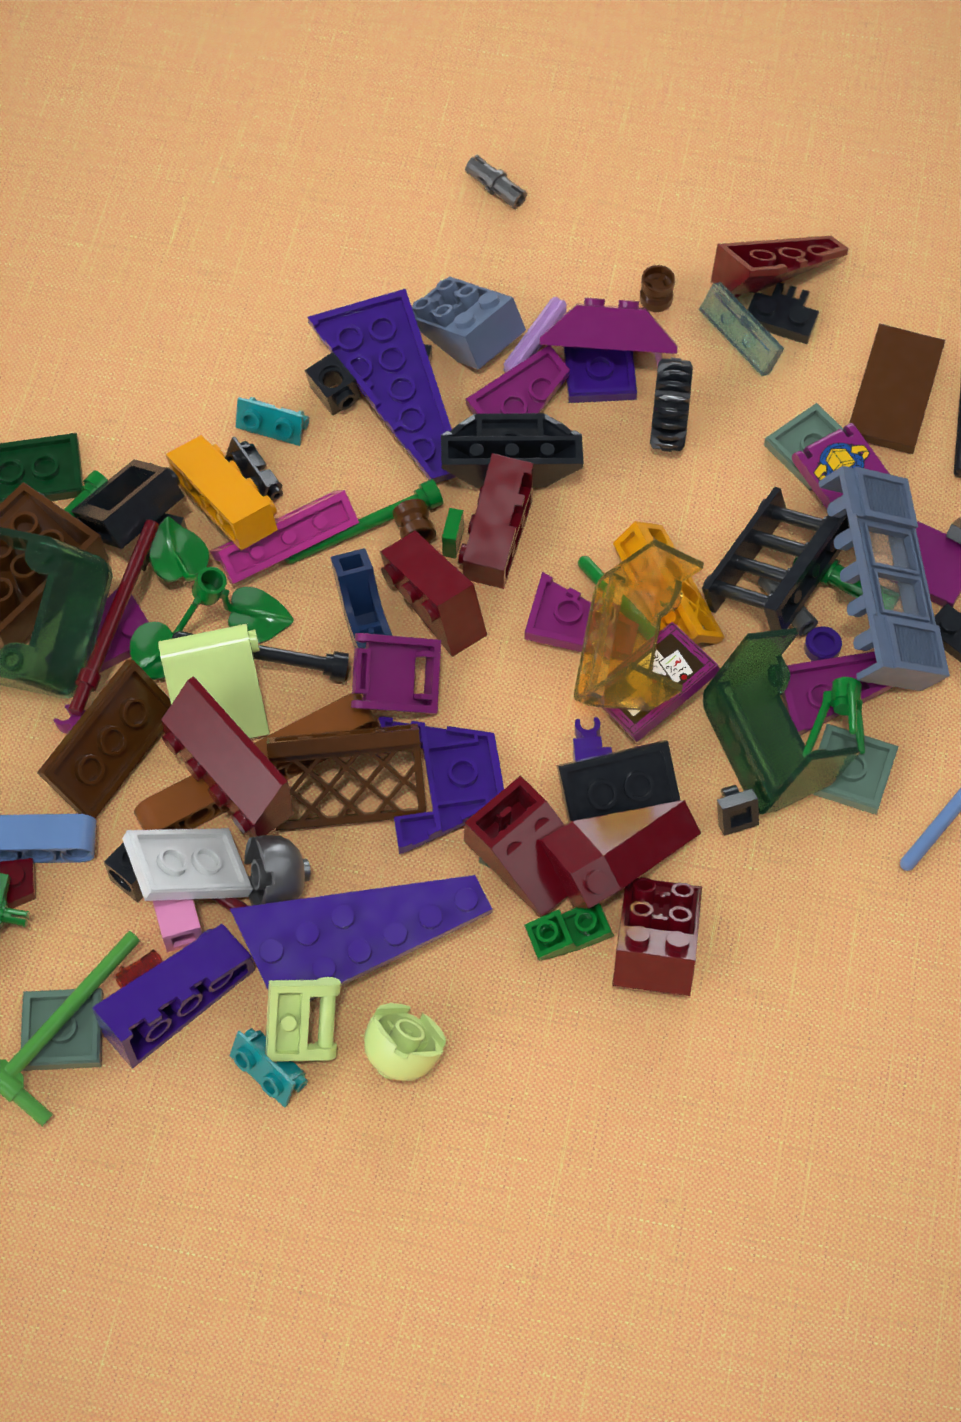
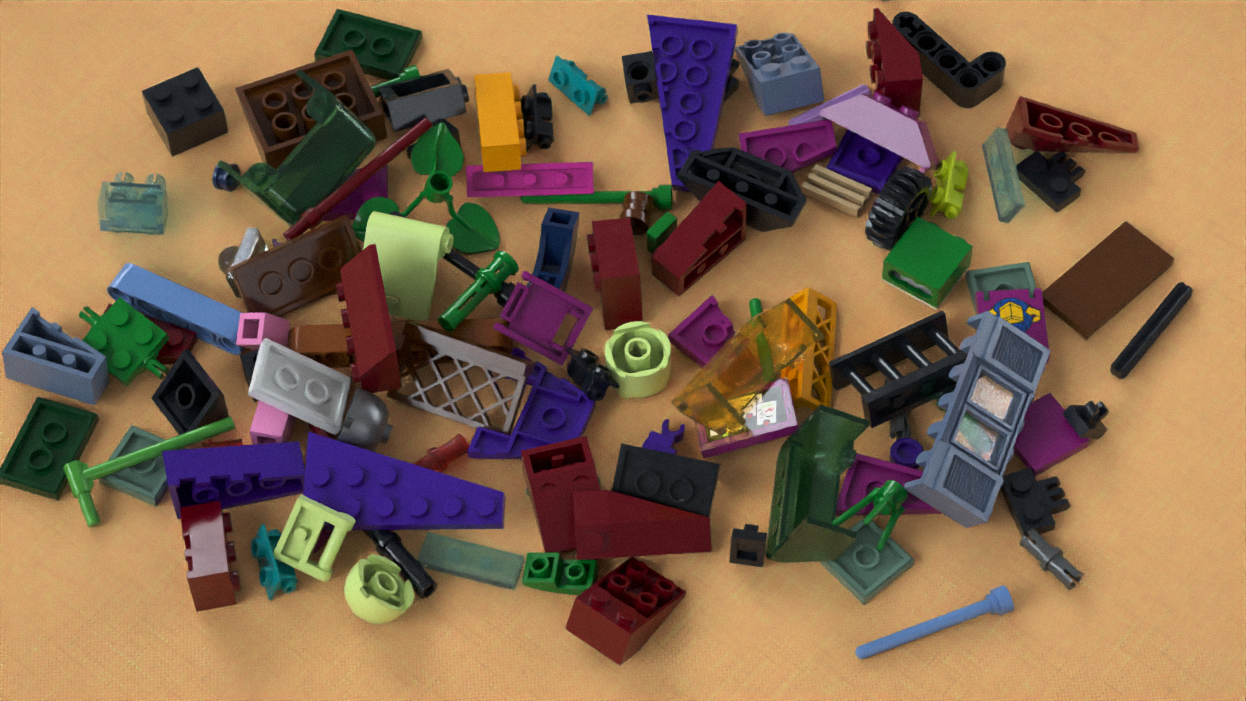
camera: 30 degrees right, 5 degrees down
(28, 759) = (251, 245): none -> clear smoke tile
(71, 931) = (189, 396): none -> black slope
(108, 824) = (257, 326): none -> bright pink brick
(198, 1092) = (209, 556): none -> dark red wedge
(315, 662) = (486, 283): none -> green pin
(372, 869) = (439, 458): none -> clear red pin
(380, 987) = (390, 546): none -> black pin
(469, 961) = (471, 561): none -> clear light blue tile
(487, 709) = (589, 373): none -> black hinge
(513, 672) = (638, 359): none -> yellowish green brick
(575, 263) = (895, 63): none -> dark red slope
(591, 408) = (839, 187): none -> tan tile
(614, 243) = (956, 77): none -> black beam
(657, 288) = (954, 113): reddish brown wheel -> none
(693, 349) = (949, 175): none -> neon yellow hinge
(726, 446) = (927, 262): none -> green piece

